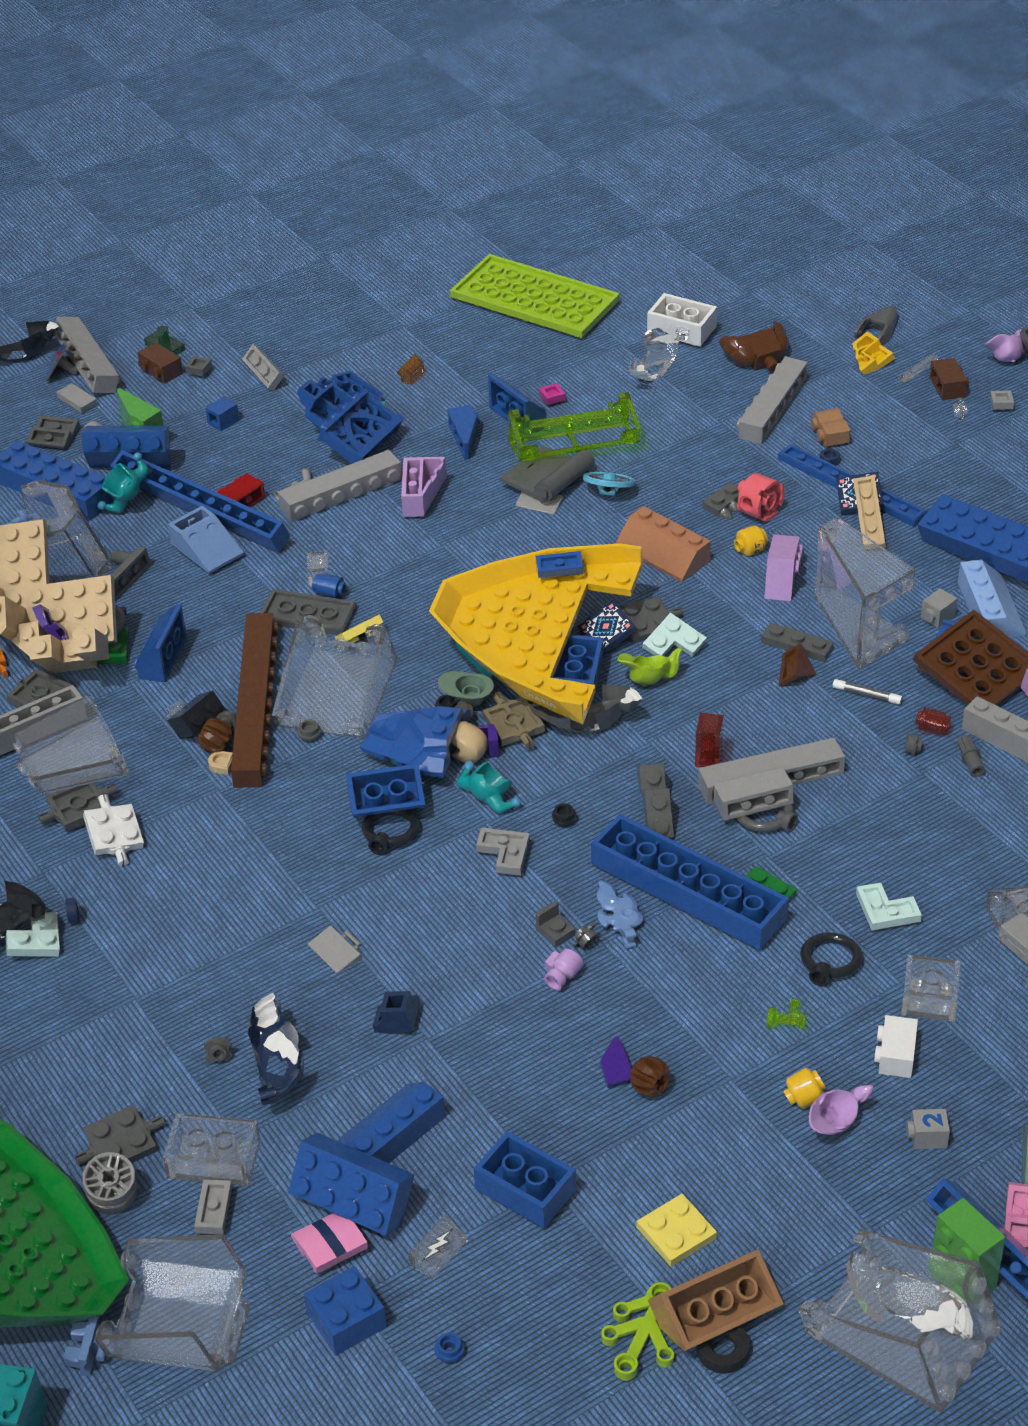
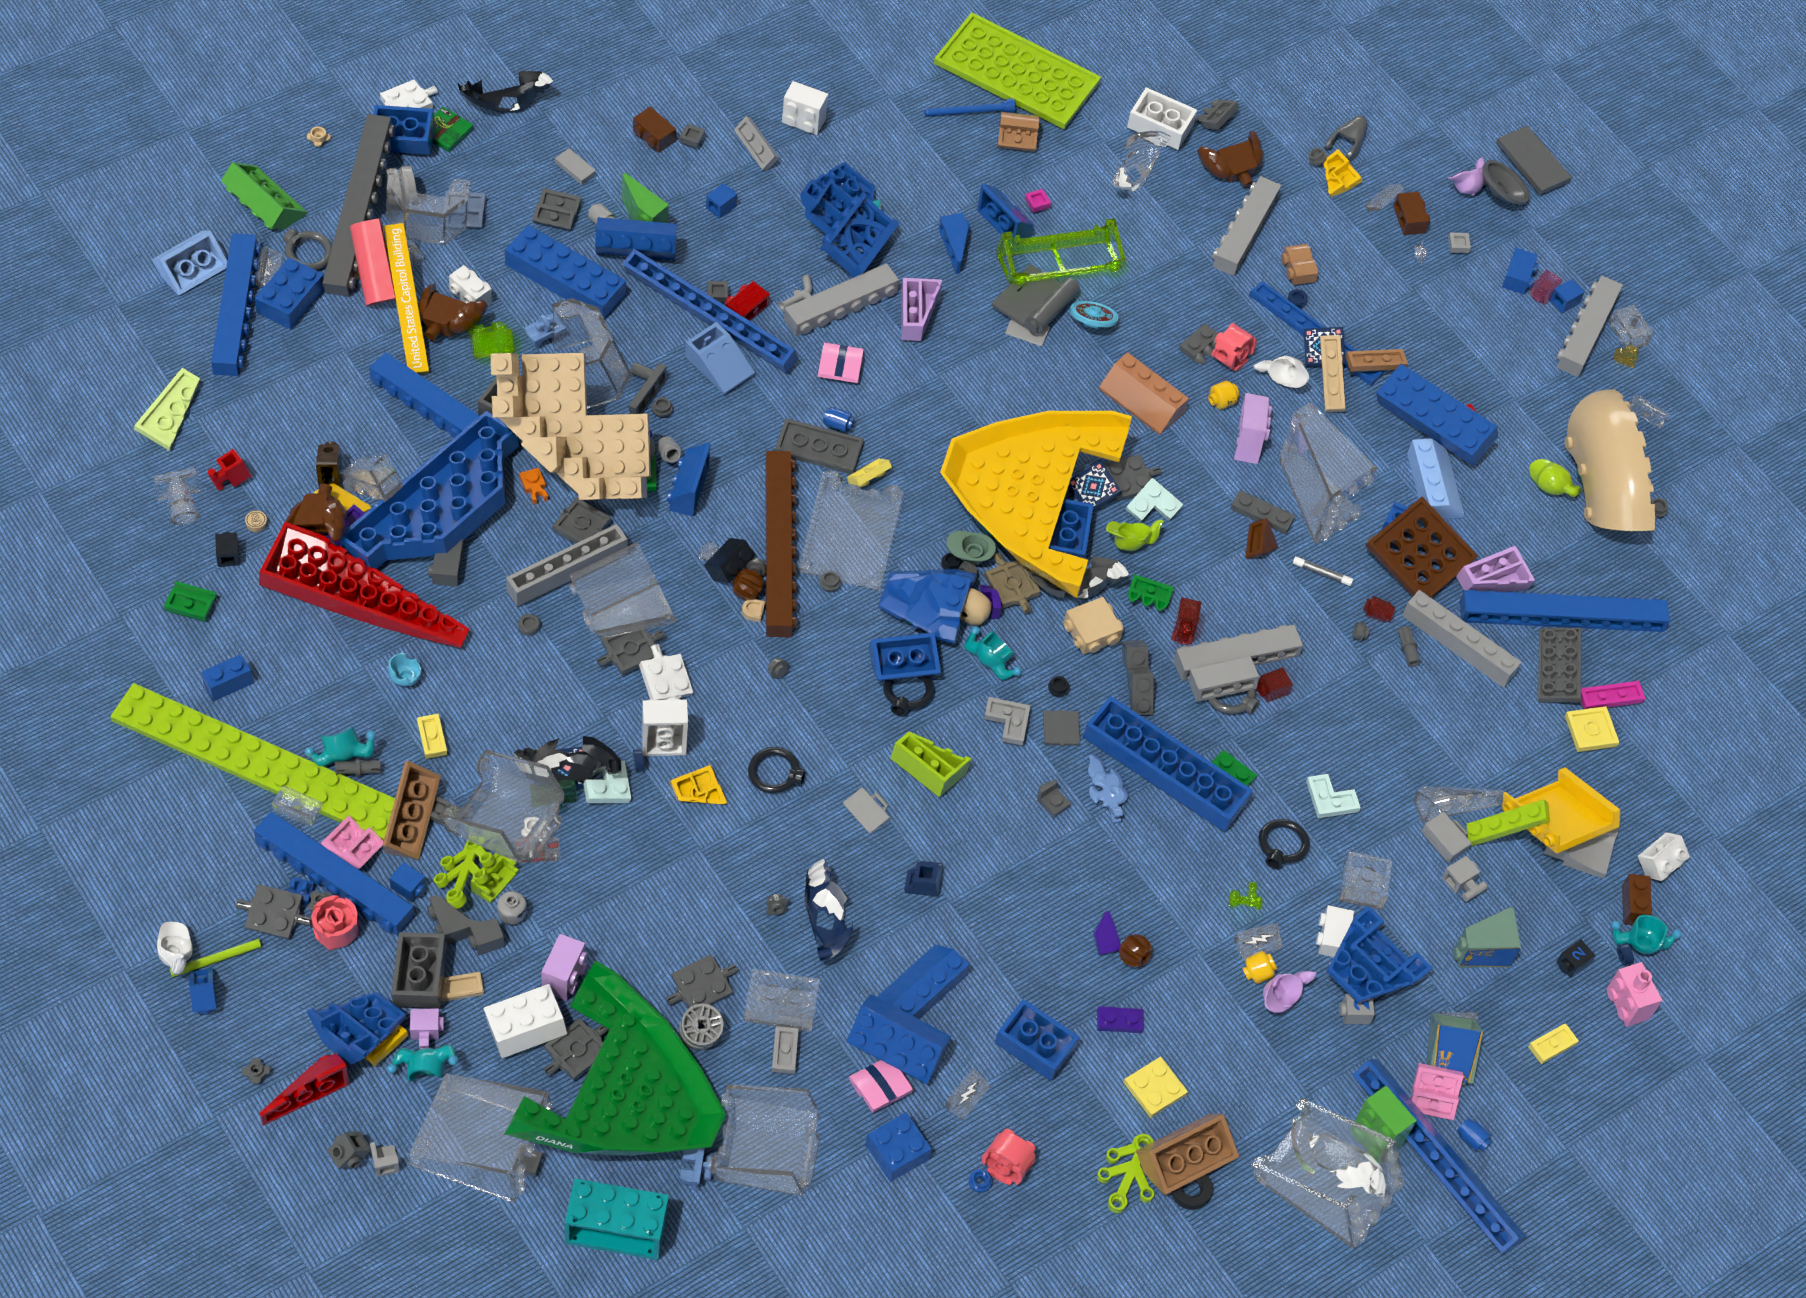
camera: 10 degrees left, 15 degrees up
(45, 620) = (596, 465): dark purple slope -> none
(62, 362) = (554, 118): dark grey shield -> none
(87, 355) = (581, 114): light grey brick -> none
(100, 870) = (664, 727): none -> white brick
(123, 484) = (638, 289): teal piece -> none
(138, 934) = (698, 787): none -> yellow slope
(140, 587) = (662, 407): none -> dark grey plate
(146, 625) = (668, 449): none -> light grey brick
(162, 337) = (652, 97): clear green tile -> none
(212, 483) = (718, 290): none -> dark grey plate
(242, 813) = (777, 668): none -> dark grey plate
(253, 916) = (796, 774): none -> black piece
(313, 333) = (804, 108): none -> white brick
(316, 564) = (826, 397): clear brick -> none
(336, 538) = (840, 362): none -> bright pink slope
(408, 895) = (929, 764): none -> lime wedge
(411, 370) = (900, 158): clear orange piece -> none
(484, 1315) = (1009, 1157): none -> coral brick
(522, 323) = (1006, 106): none -> blue piece
(533, 340) = (1018, 131): none -> medium nougat brick
(559, 564) = (1057, 429): blue plate -> none
(562, 967) = (1063, 839): lavender piece -> none
(566, 856) = (1061, 728): none -> dark grey piece
(585, 936) = (1080, 811): dark grey plate -> none
(603, 753) = (1093, 625): none -> tan brick
(632, 1155) = (1119, 1019): none -> dark purple plate
(669, 720) = (1150, 592): none -> green plate
(741, 315) = (1218, 114): none -> dark grey plate
(808, 1055) = (1258, 939): none -> clear slope
(814, 513) = (1285, 371): none -> white hair
(814, 799) = (1274, 685): none -> clear red brick
(846, 341) = (1317, 156): none -> dark grey plate
(912, 499) = (1375, 360): none -> medium nougat plate
(938, 607) = (1389, 485): light grey brick -> none
(939, 1073) = (1370, 963): none -> blue wedge

